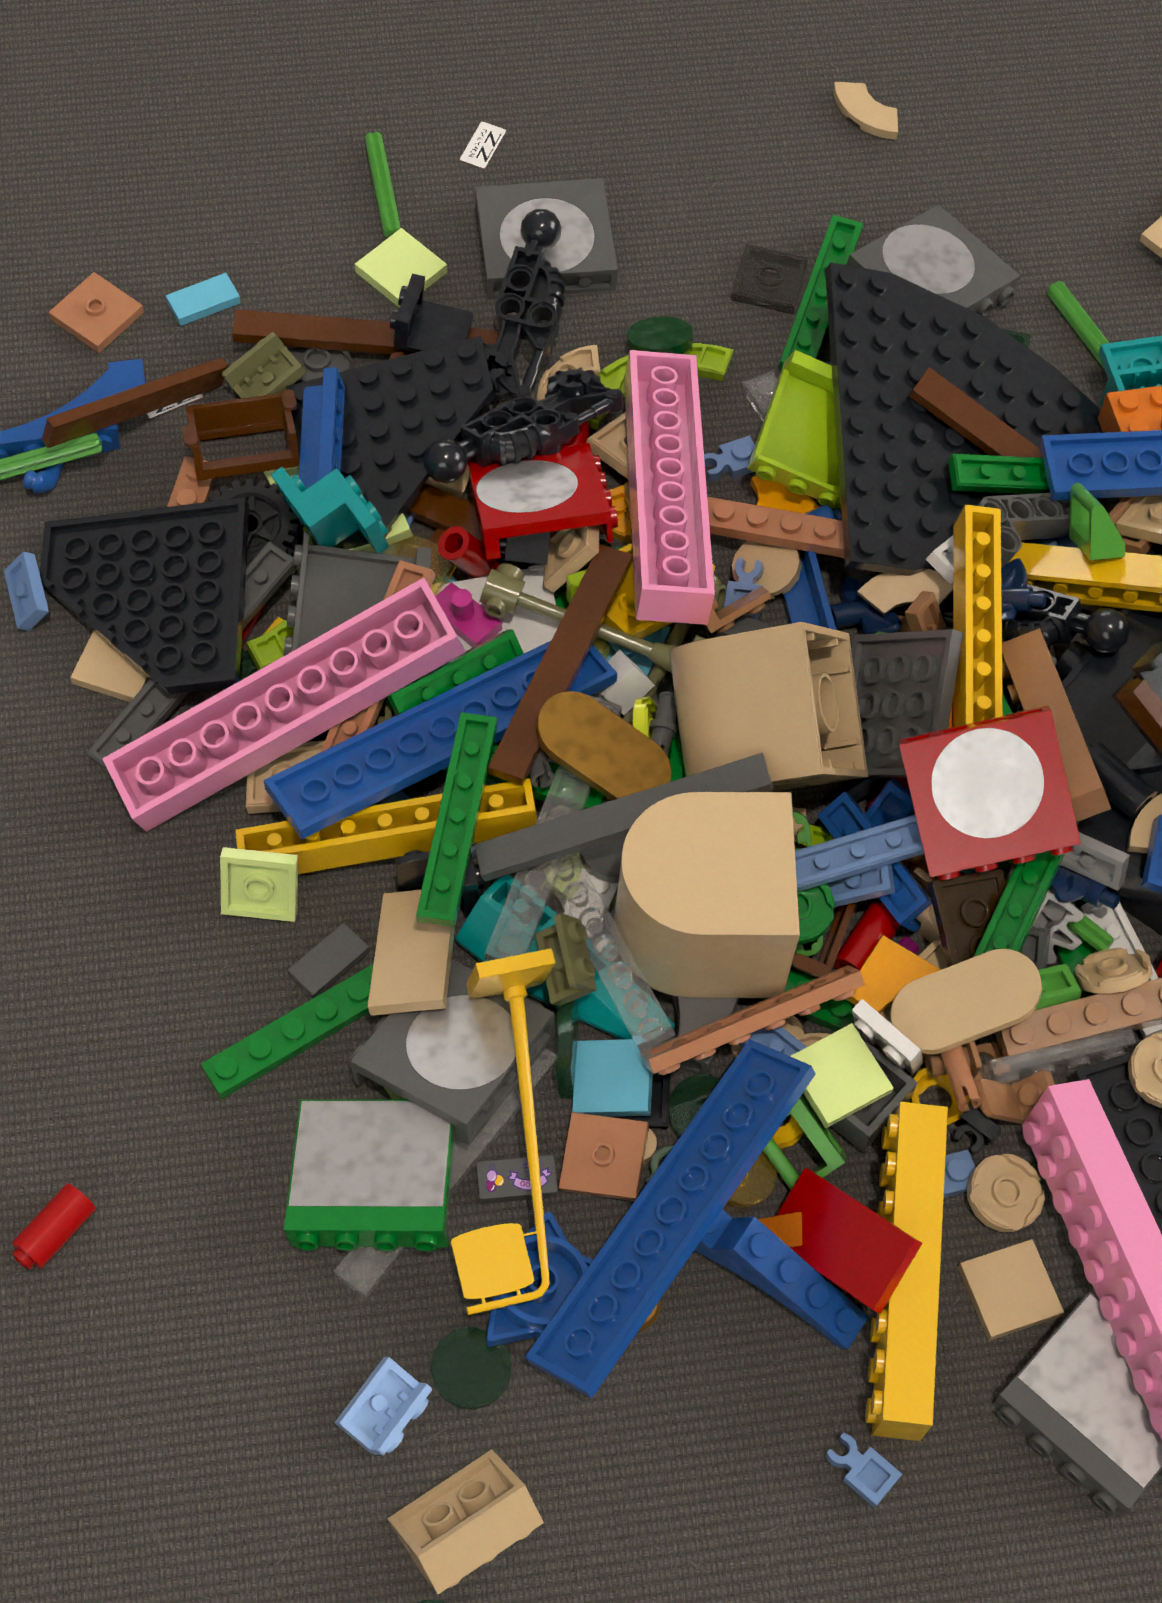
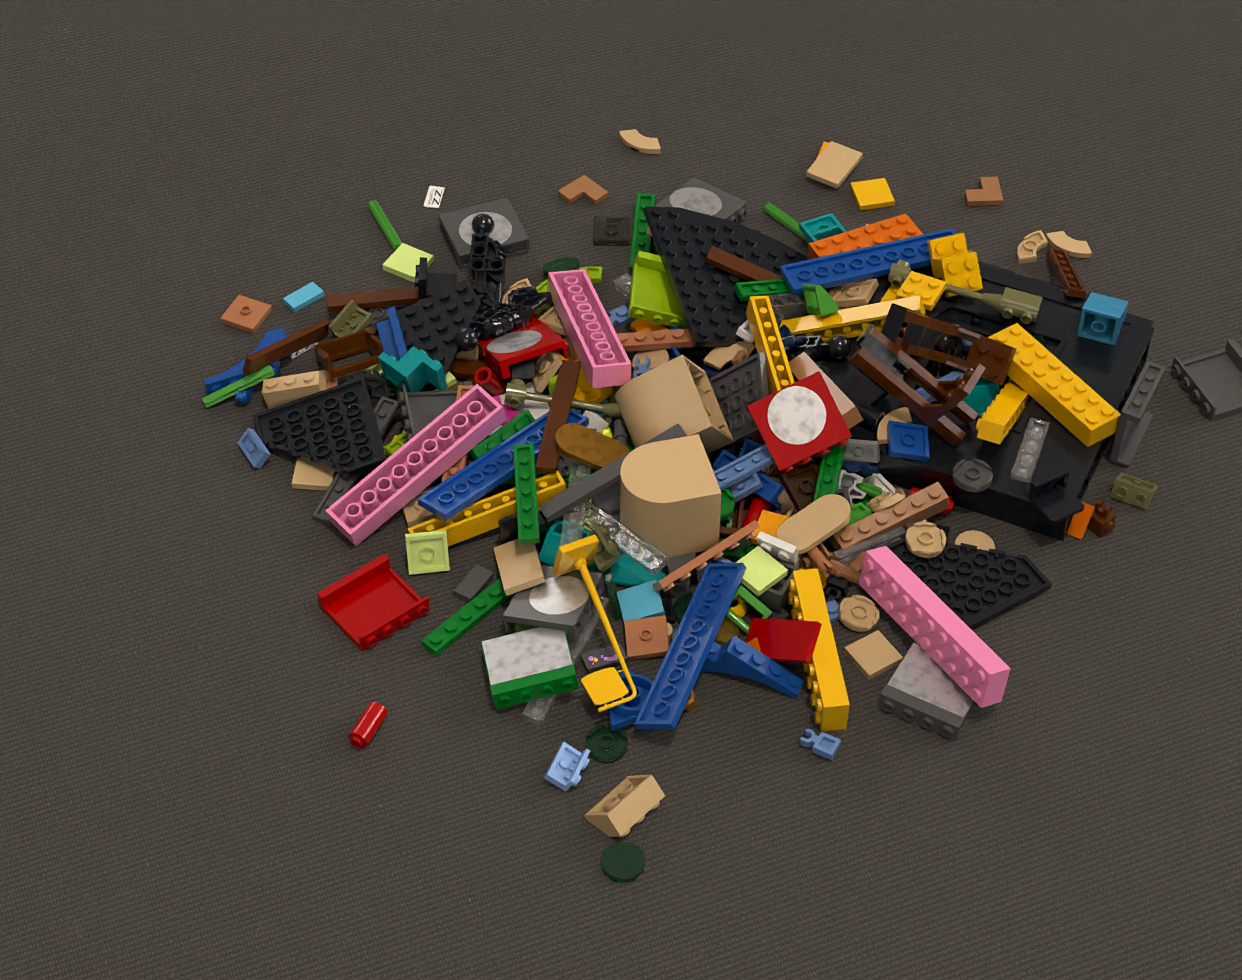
camera: 10 degrees left, 15 degrees down
(128, 483) = (293, 387): none -> tan slope
(138, 964) = (372, 603): none -> red panel
(743, 181) = (583, 187): none -> medium nougat tile

